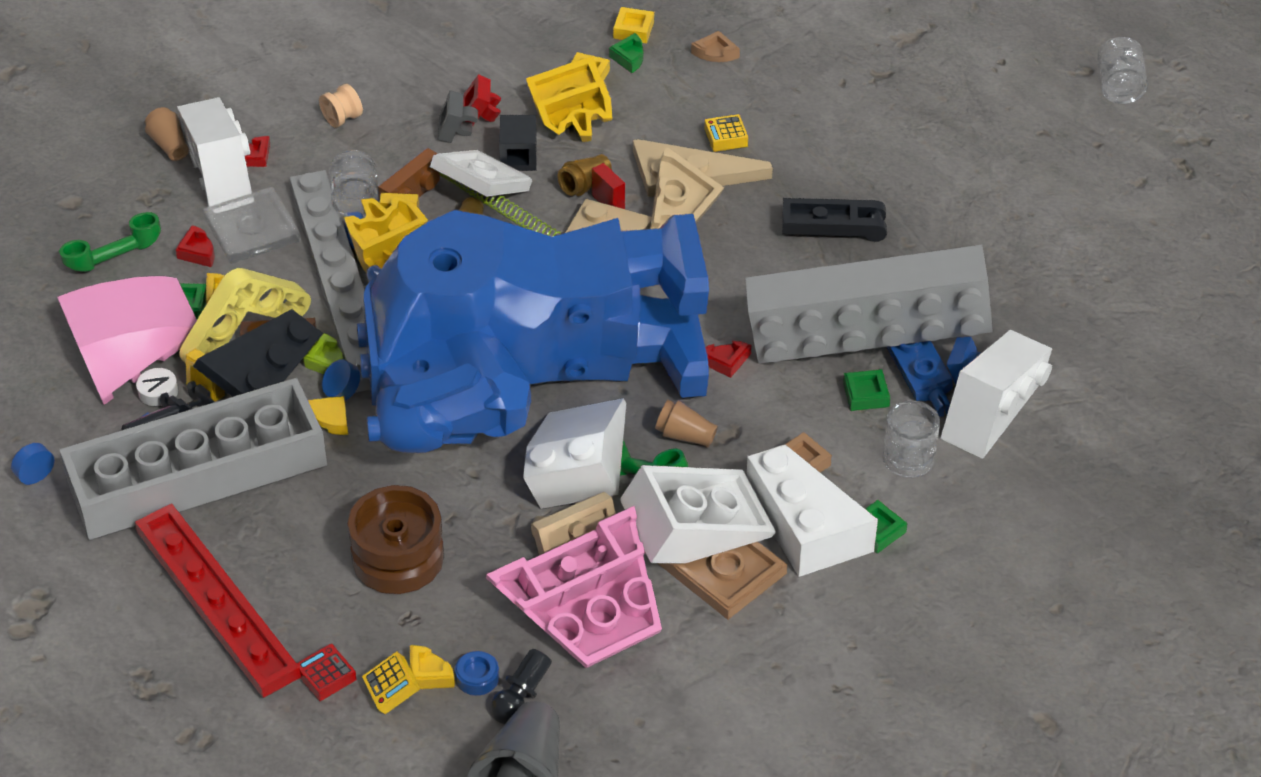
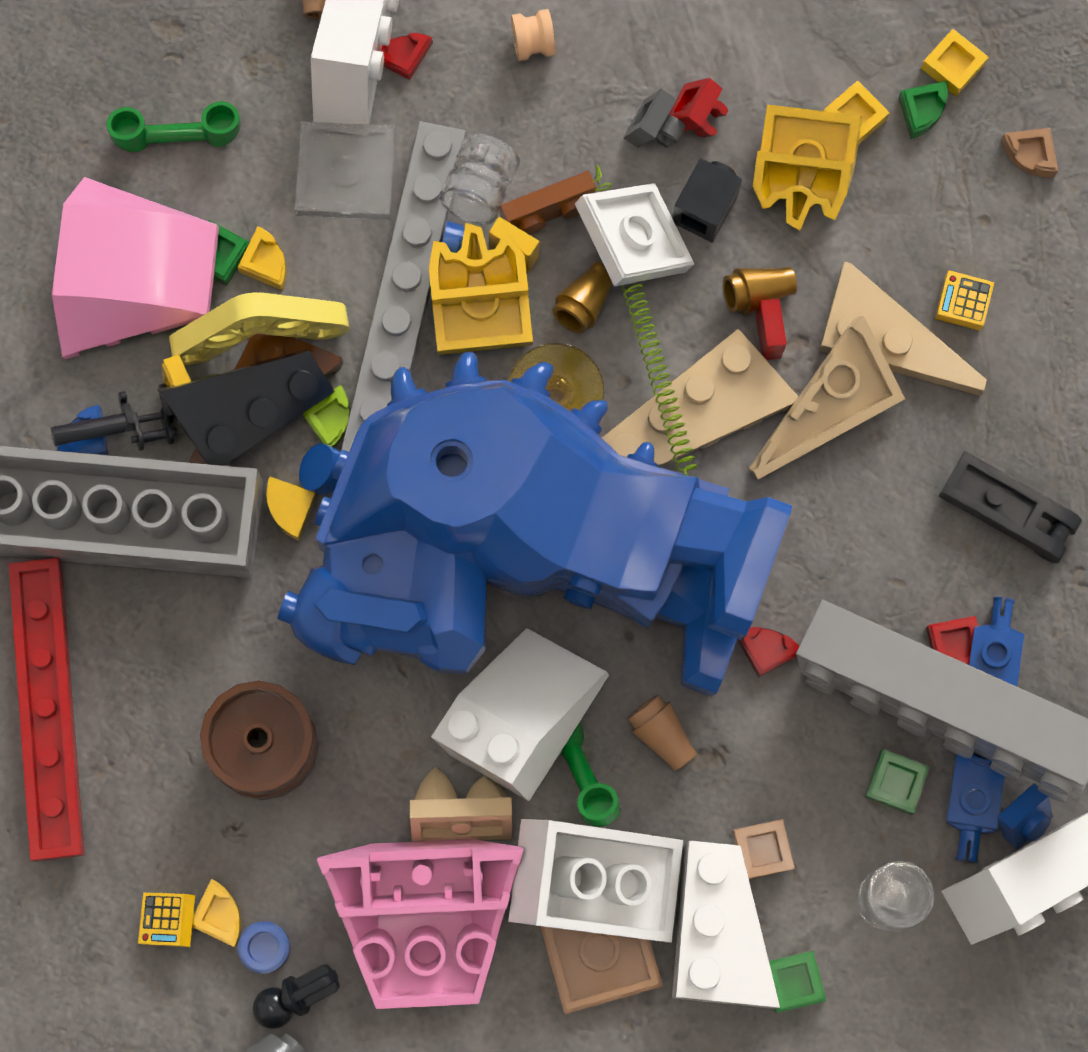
camera: 25 degrees right, 30 degrees up
(154, 383) = (128, 368): white tile -> none
(196, 247) = (269, 175): red tile -> none
(326, 672) = (112, 863): red tile -> none

